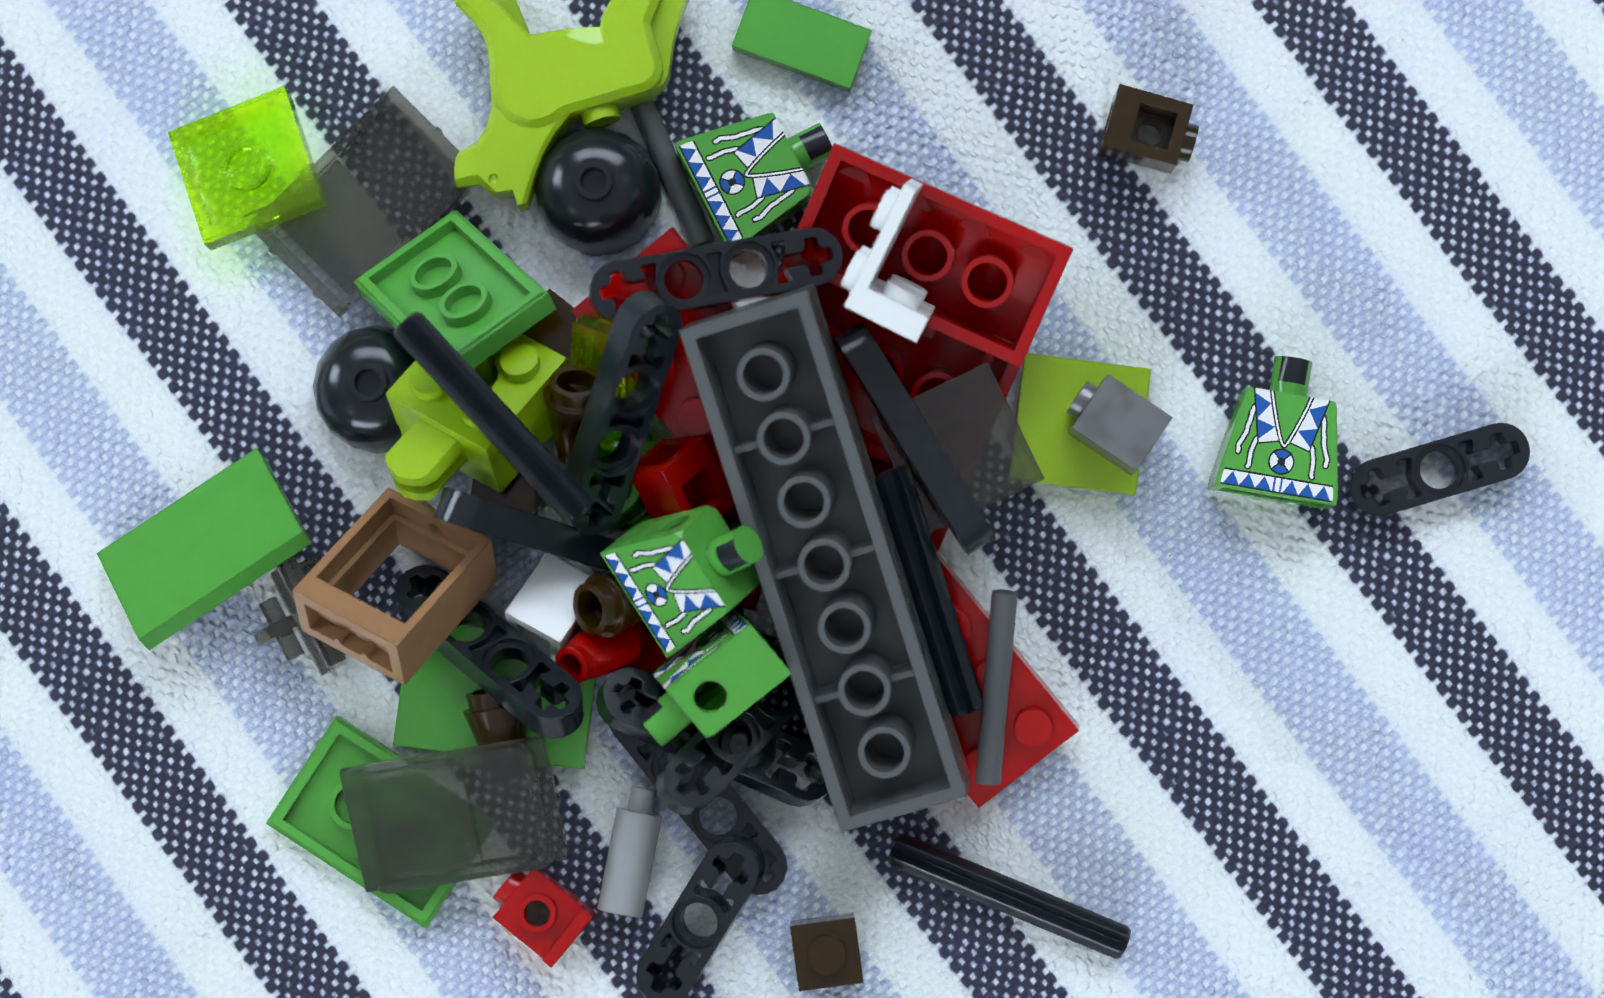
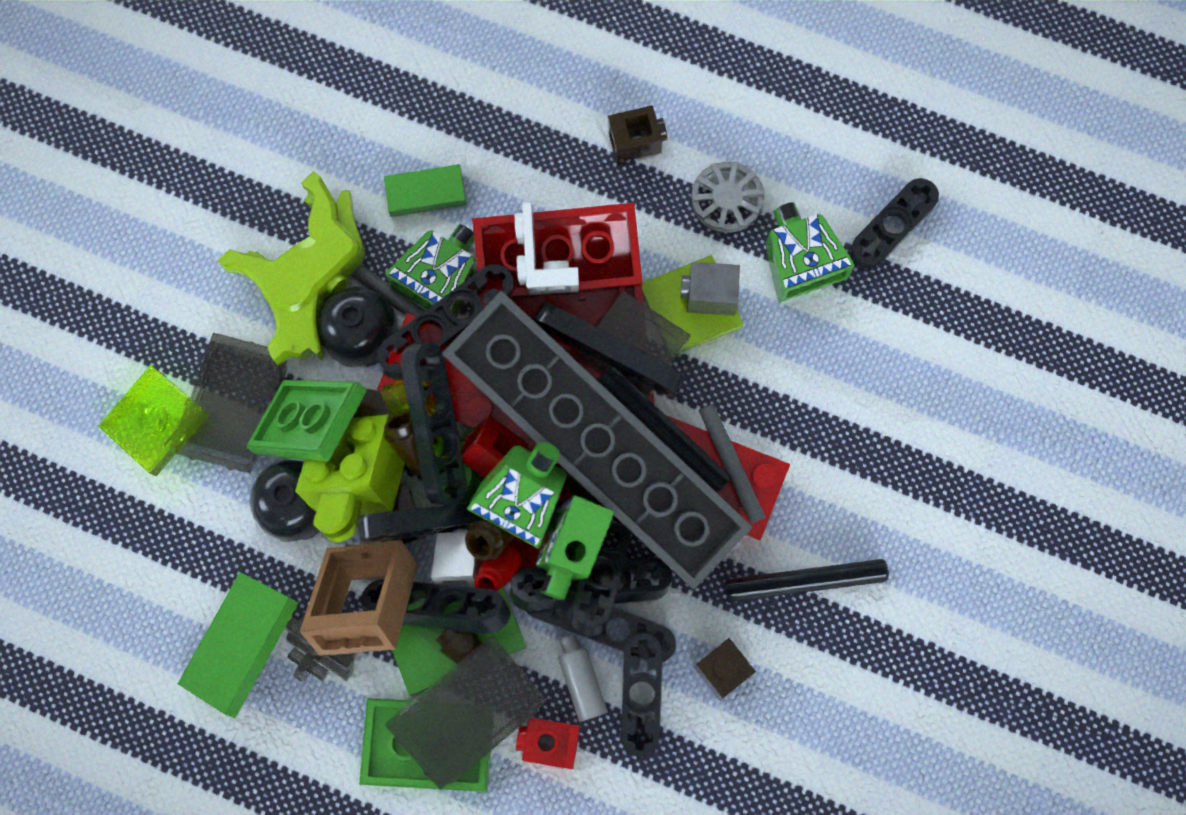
camera: 30 degrees left, 10 degrees down
(493, 417) = (363, 463): black axle -> none
(1225, 294) = (727, 196): none -> light grey wheel

